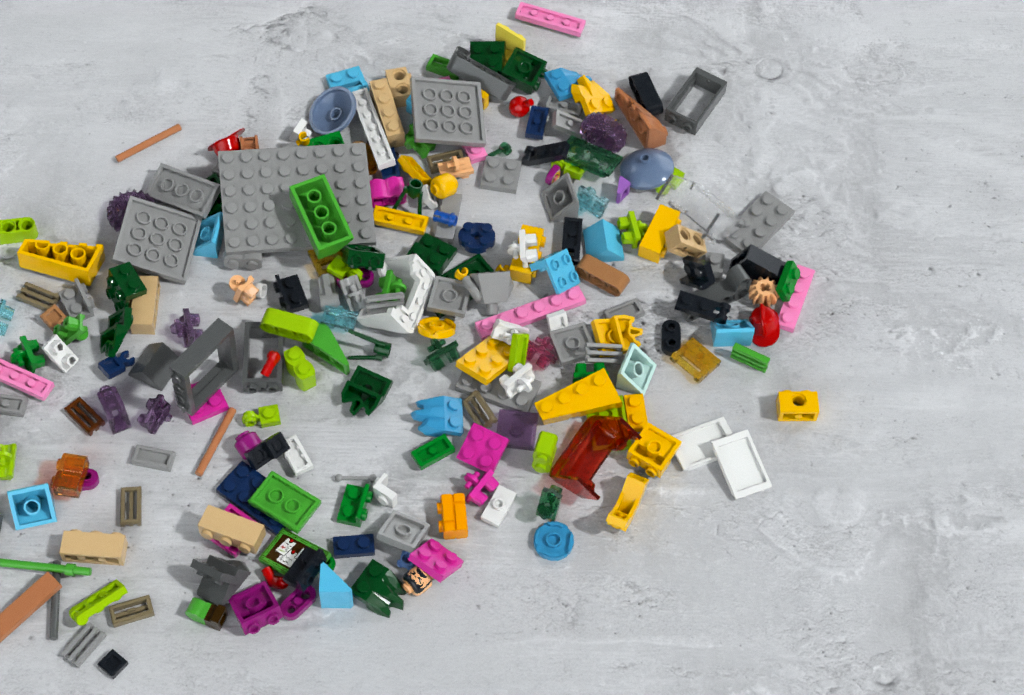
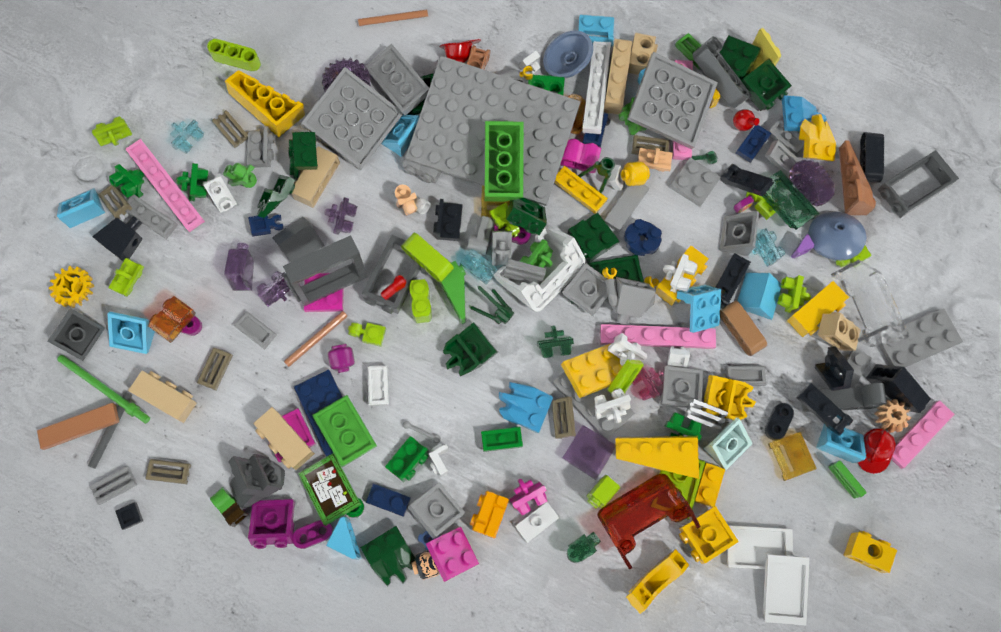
camera: 25 degrees right, 15 degrees up
(53, 316) = (233, 154): medium nougat tile -> none
(94, 426) = (220, 276): reddish brown tile -> none
(97, 602) = (141, 451): lime plate -> none
(267, 450) = (351, 372): black slope -> none
(272, 580) = (302, 501): red arm -> none
(305, 568) = (329, 510): black bracket -> none
(411, 167) = (616, 145): yellow plate -> none
(435, 328) = (562, 316): yellow tile -> none
(446, 218) = (625, 210): blue pin -> none
(482, 448) = (548, 458): dark pink plate -> none
(550, 19) = (815, 41): bright pink plate -> none
(553, 541) = (571, 581): dark azure tile -> none
(788, 281) = (919, 420): green plate -> none

